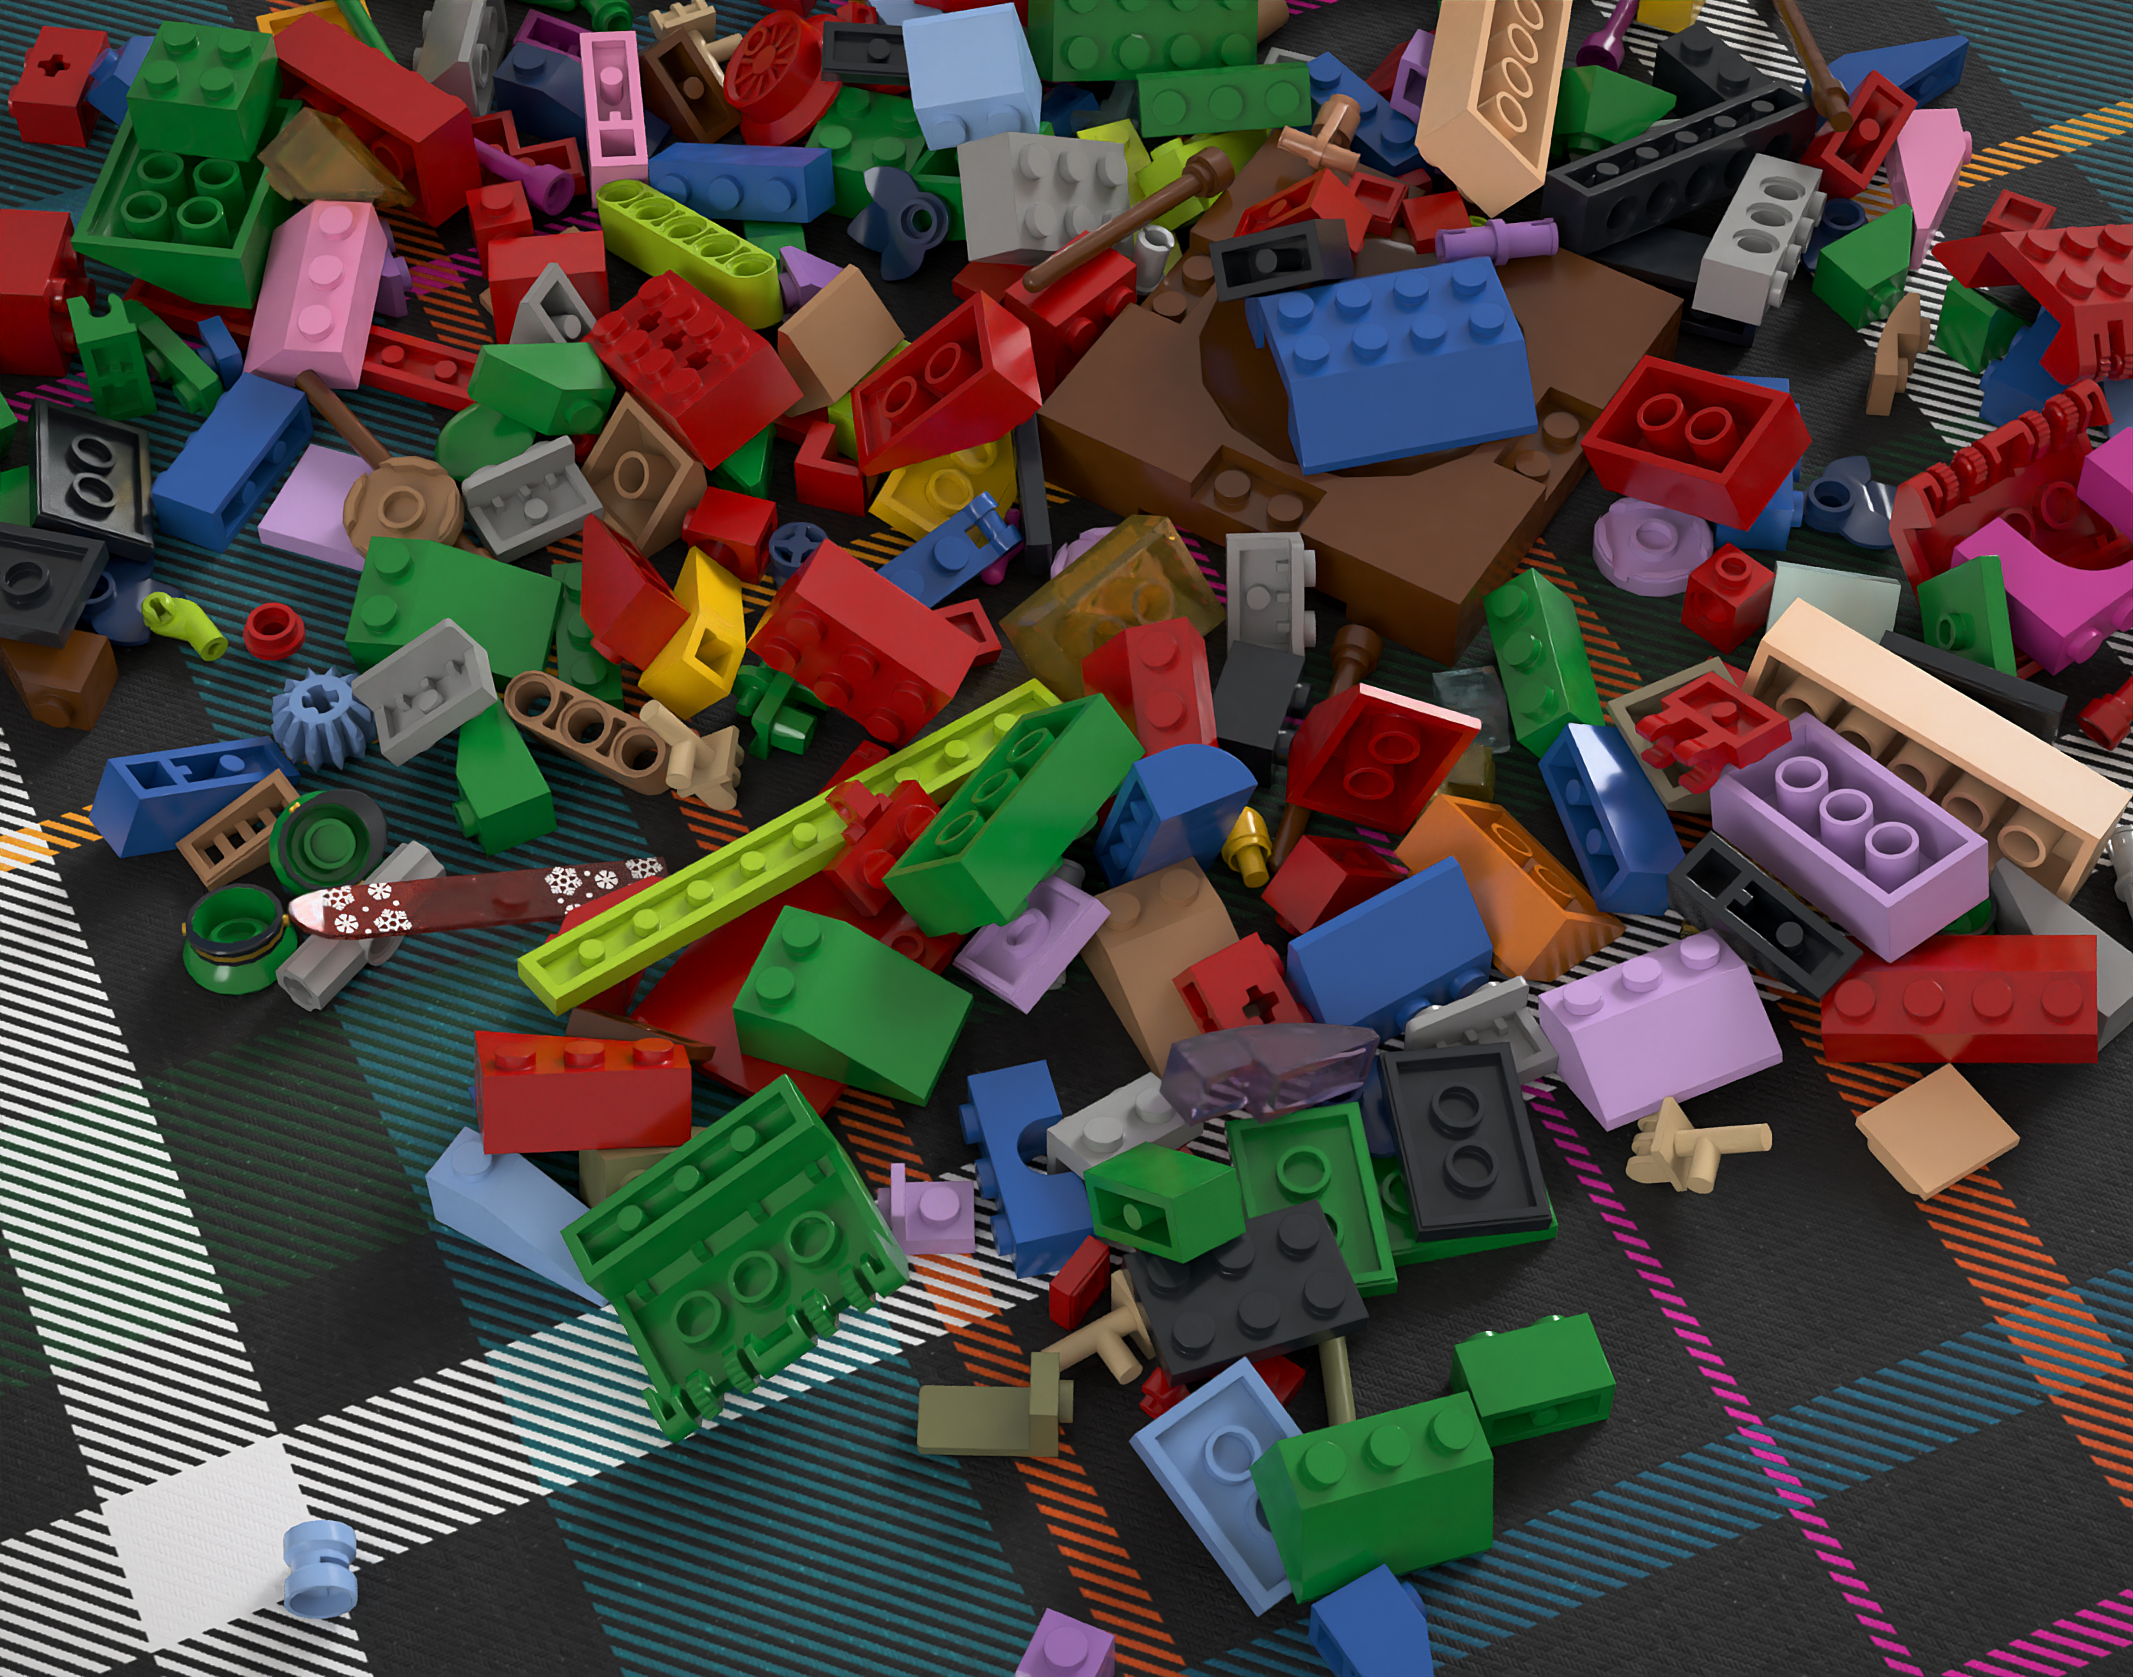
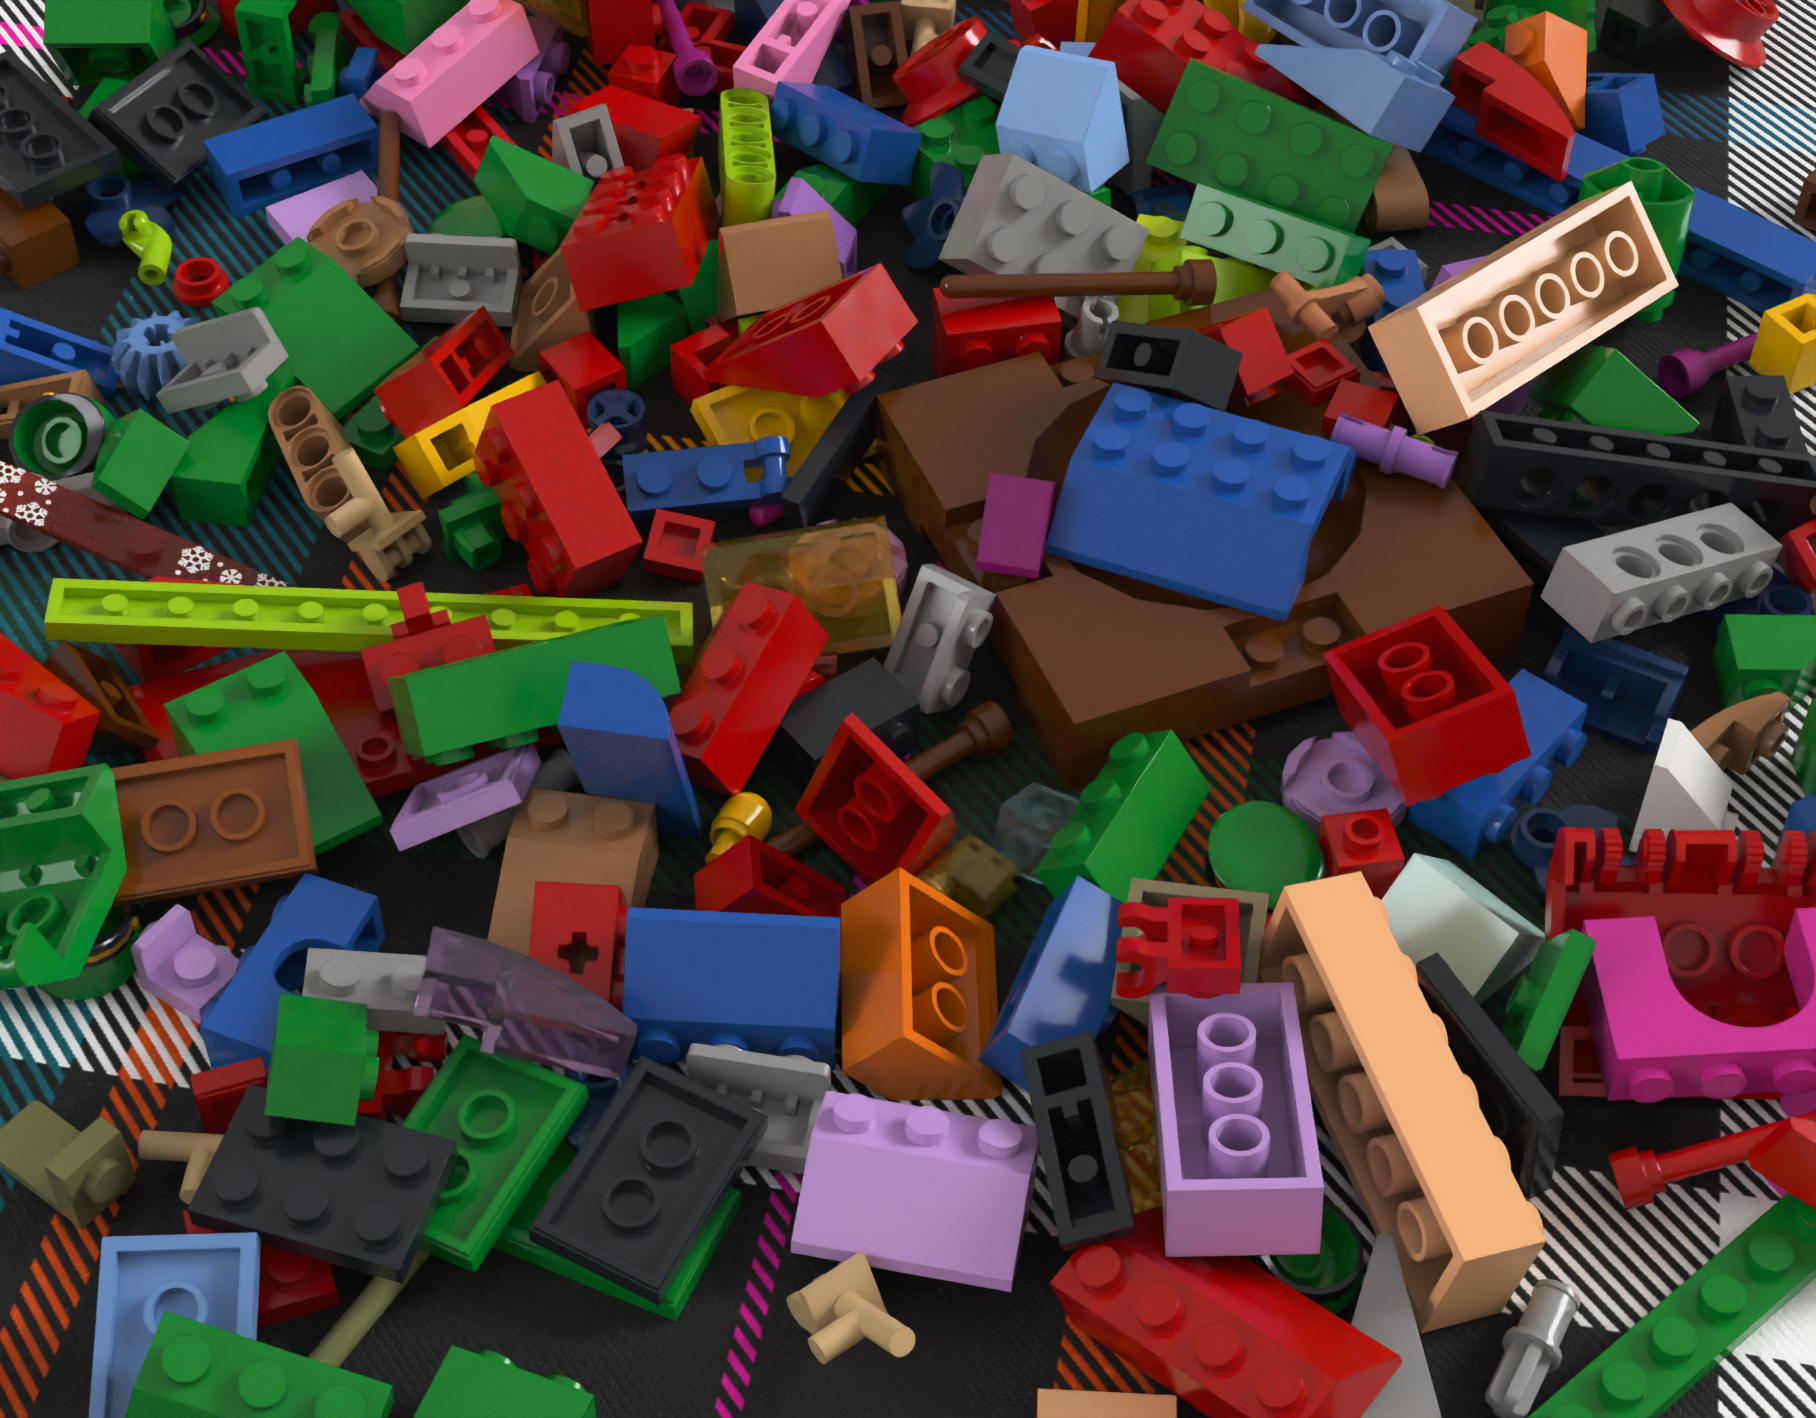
camera: 35 degrees right, 5 degrees down
(439, 819) = (137, 461): none -> green slope
(874, 1068) = (213, 822): none -> dark orange tile
(1270, 461) = (1016, 525): none -> magenta slope
(1653, 635) = (1262, 850): none -> green piece
(1785, 346) = (1624, 687): none -> dark blue hinge
(1909, 422) = (1684, 788): none -> white slope

